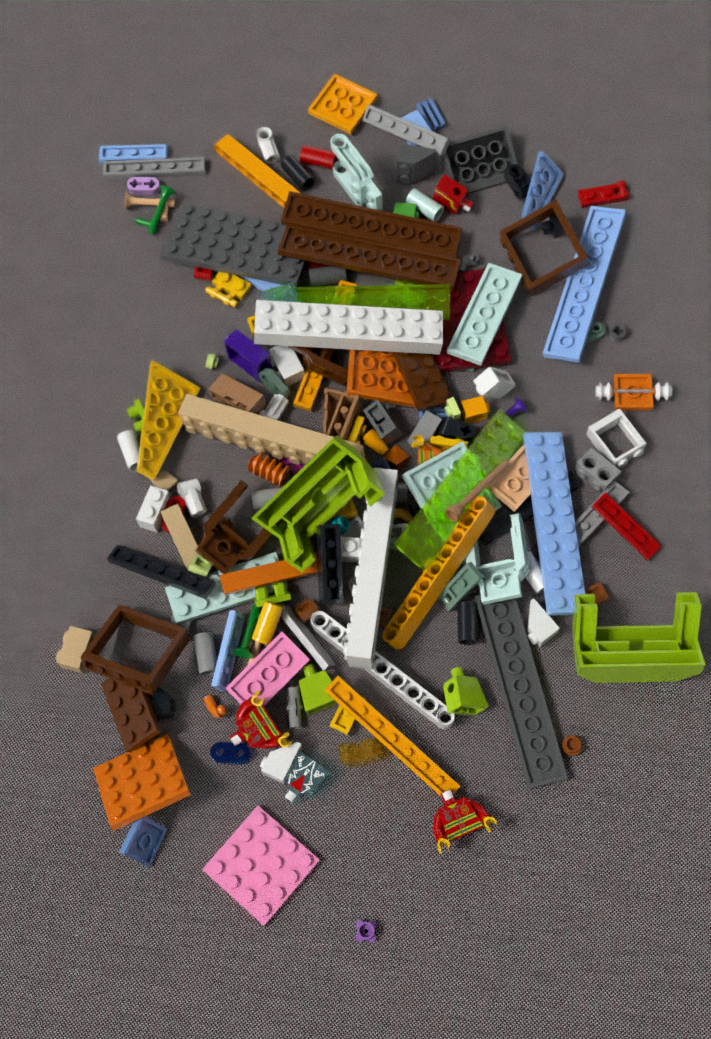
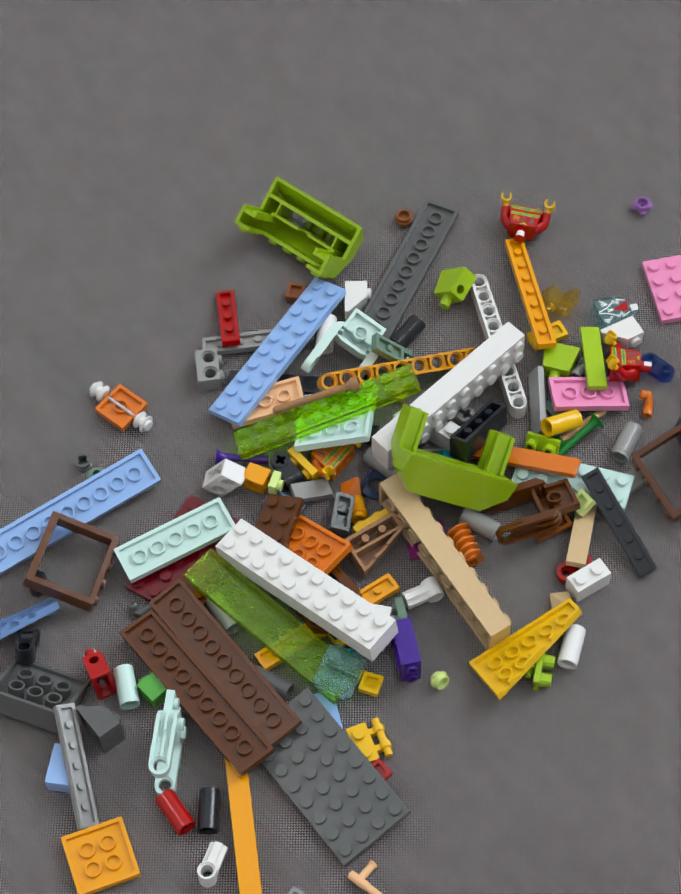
camera: 145 degrees left, 10 degrees down
(165, 194) = (389, 863): green piece -> none
(191, 493) = (547, 571): white piece -> none
(226, 656) = (606, 432): light blue tile -> none
(237, 395) = (443, 622): medium nougat wedge -> none
(287, 709) = (593, 358): none -> lime tile
(306, 609) = (521, 421): dark orange plate -> none
(426, 105) = (37, 765): medium blue tile -> none
(607, 423) = (169, 396): white window -> none

